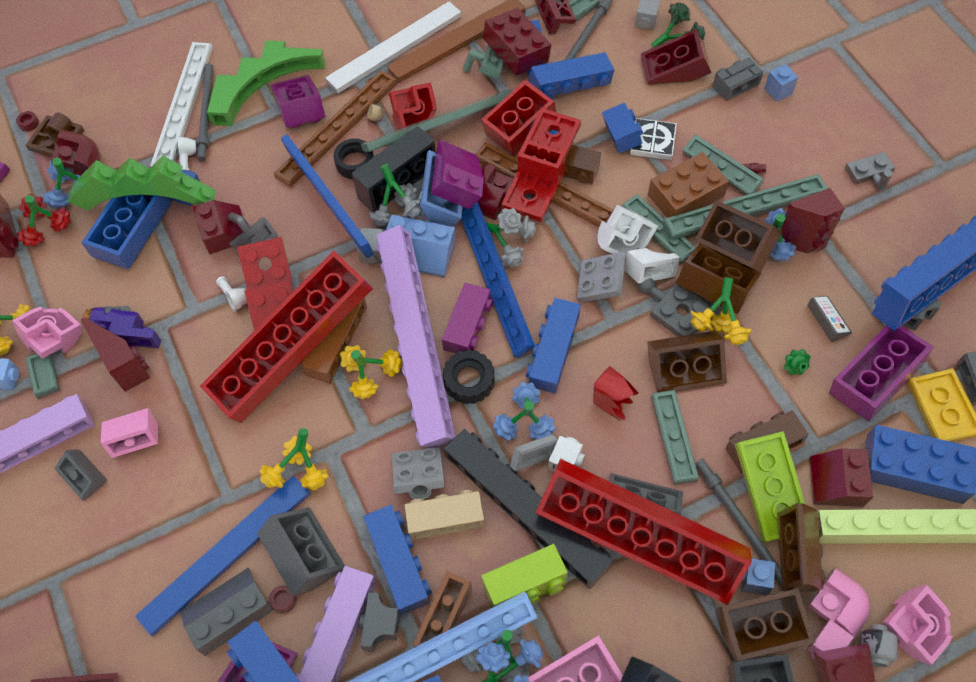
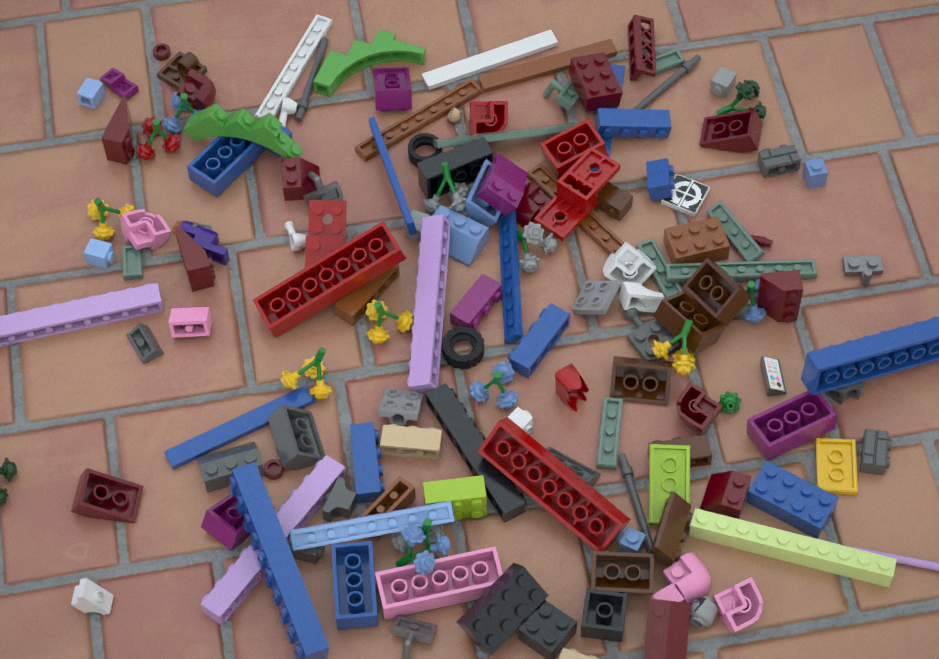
camera: 15 degrees right, 5 degrees down
(533, 452) = (491, 413): light grey tile -> none
(767, 380) = (697, 409): none -> dark red brick

